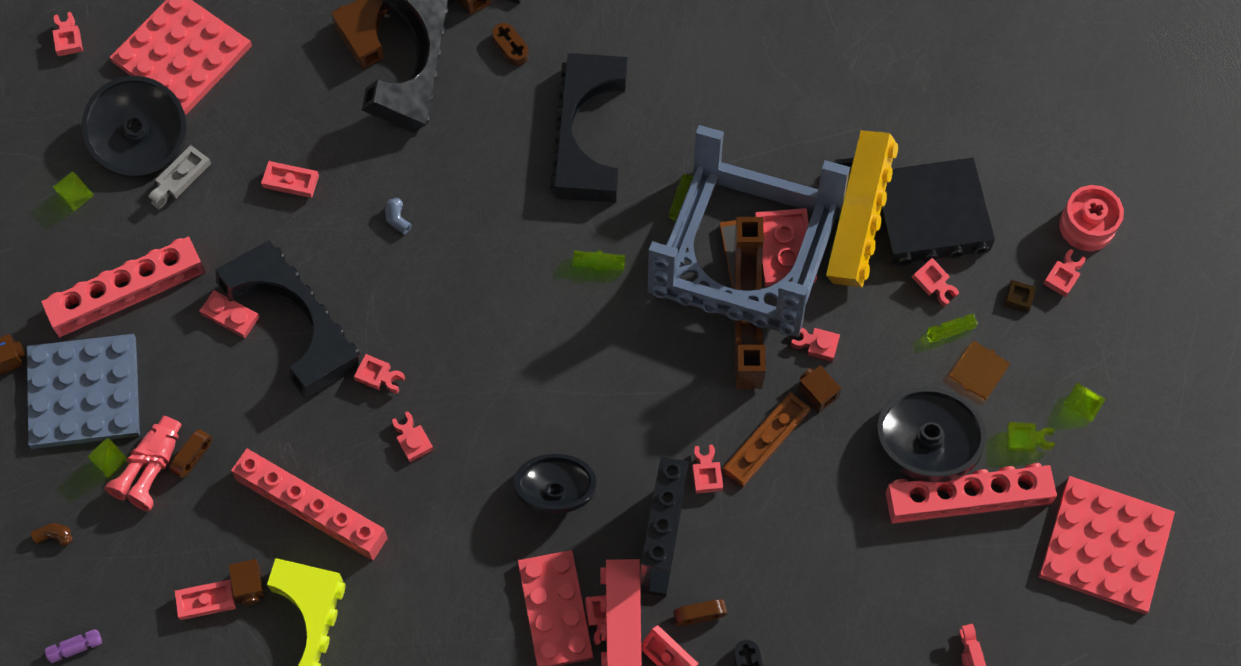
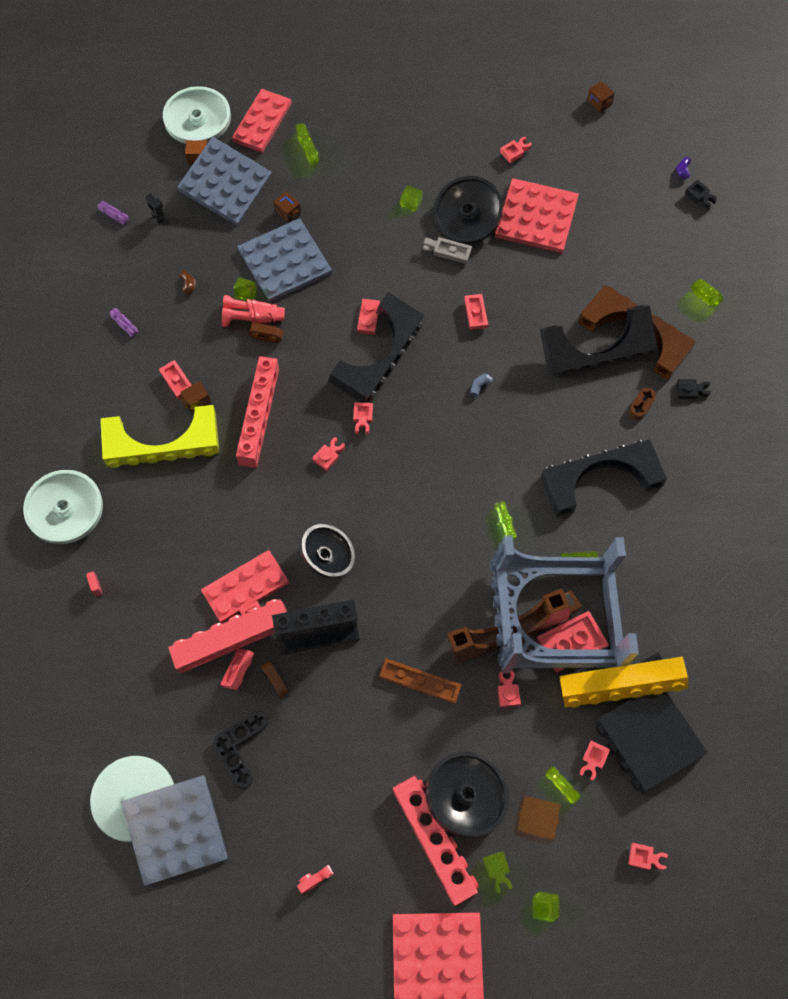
camera: 70 degrees right, 0 degrees up
(115, 298) = (325, 229): coral brick -> none
(706, 474) = (376, 649): coral plate -> none
(819, 388) = (471, 702): reddish brown brick -> none
(1019, 296) = (612, 828): dark brown tile -> none
(1091, 218) = (689, 861): coral wheel -> none

